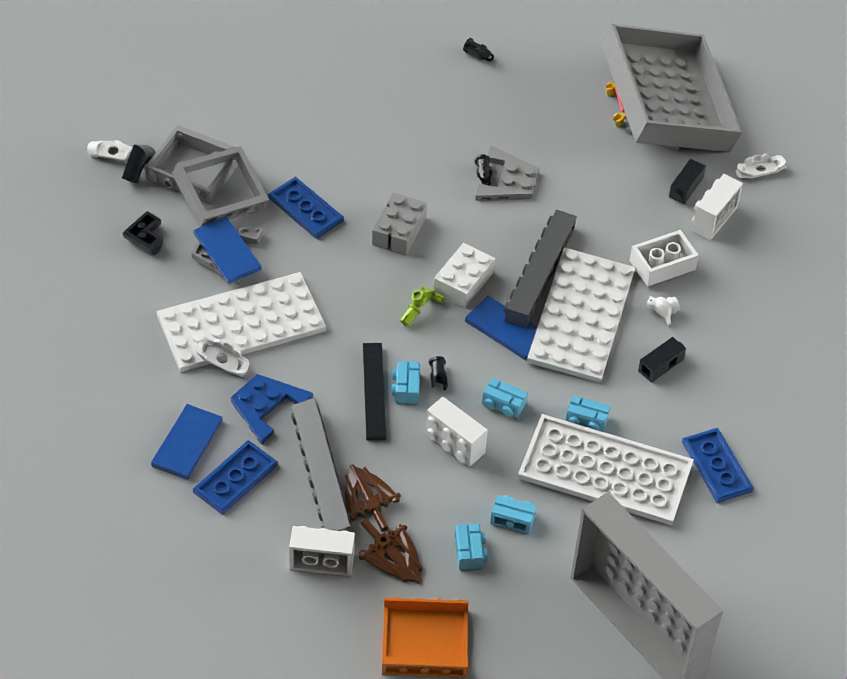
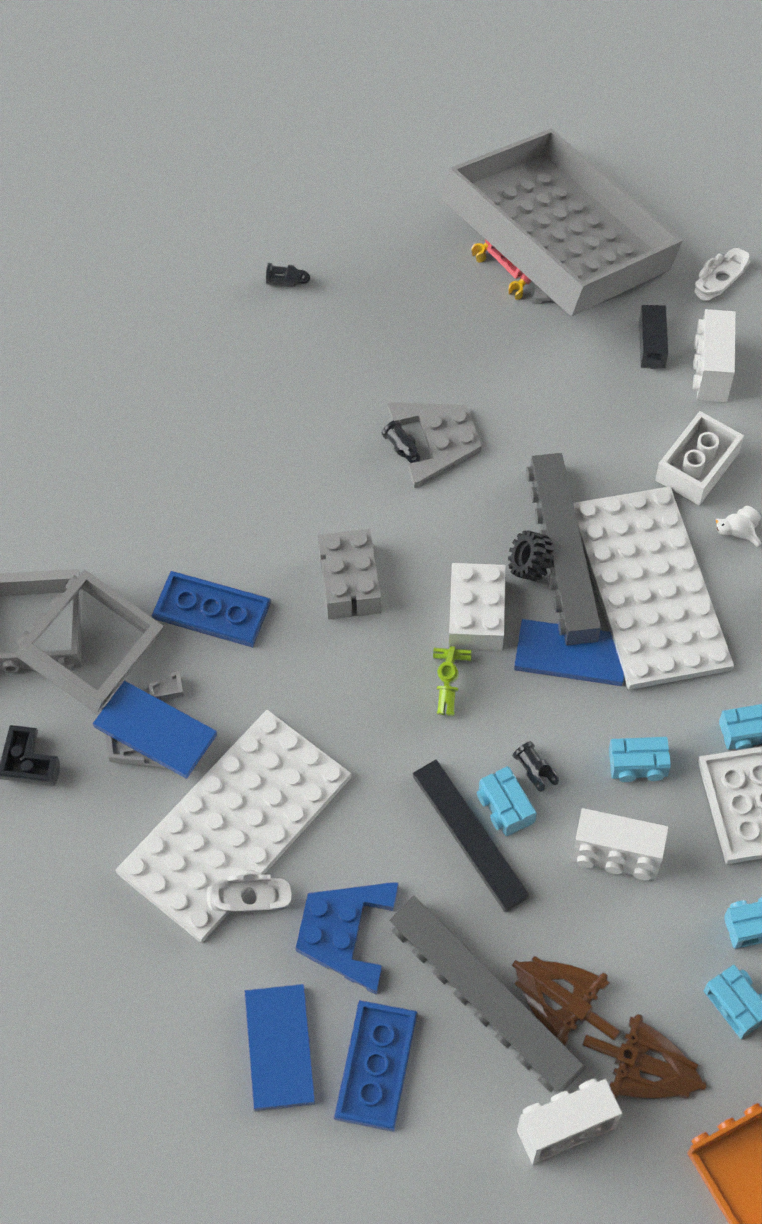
camera: 25 degrees left, 10 degrees up
(515, 261) = (531, 555): none -> black tyre

